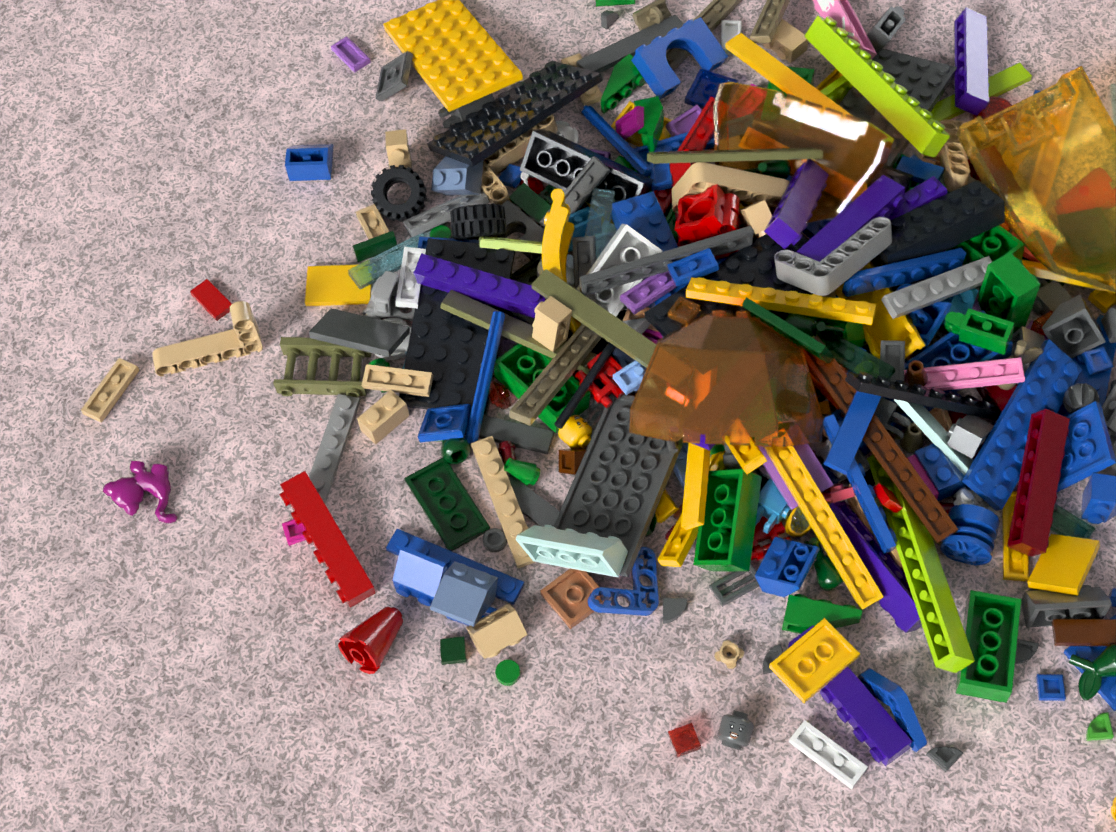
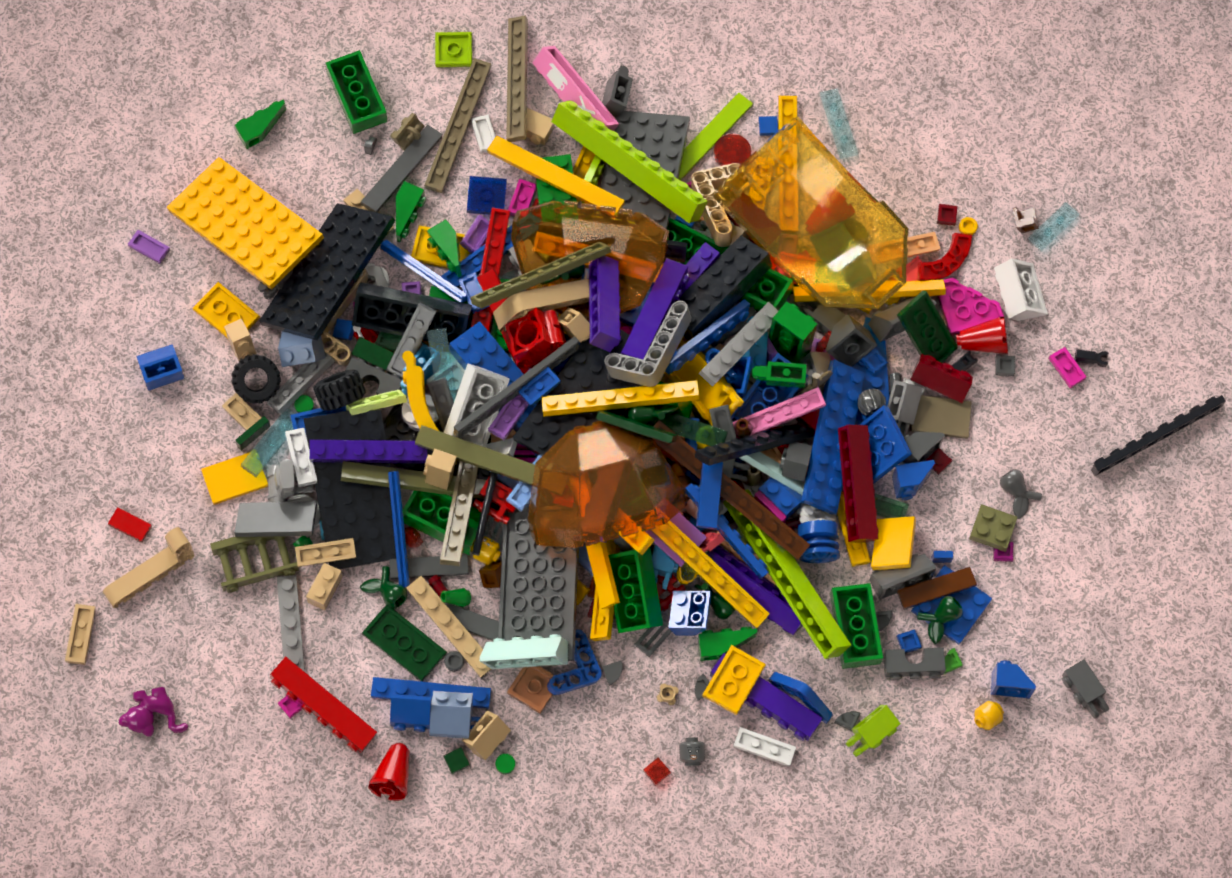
camera: 30 degrees left, 10 degrees up
(394, 76) = (202, 262): dark grey tile -> none
(399, 118) = (222, 307): none -> yellow tile
(445, 423) = (378, 576): blue tile -> none
(630, 122) = (431, 253): magenta tile -> none
(683, 311) = (545, 428): clear orange tile -> none
(692, 37) = (429, 185): blue arch -> none
(887, 498) = (750, 535): red tile -> none
(921, 170) = (689, 233): blue tile -> none
(971, 61) = (699, 106): brick -> none
(974, 777) = (873, 729): none -> lime hinge
(1028, 712) = (898, 666): none -> dark grey arch

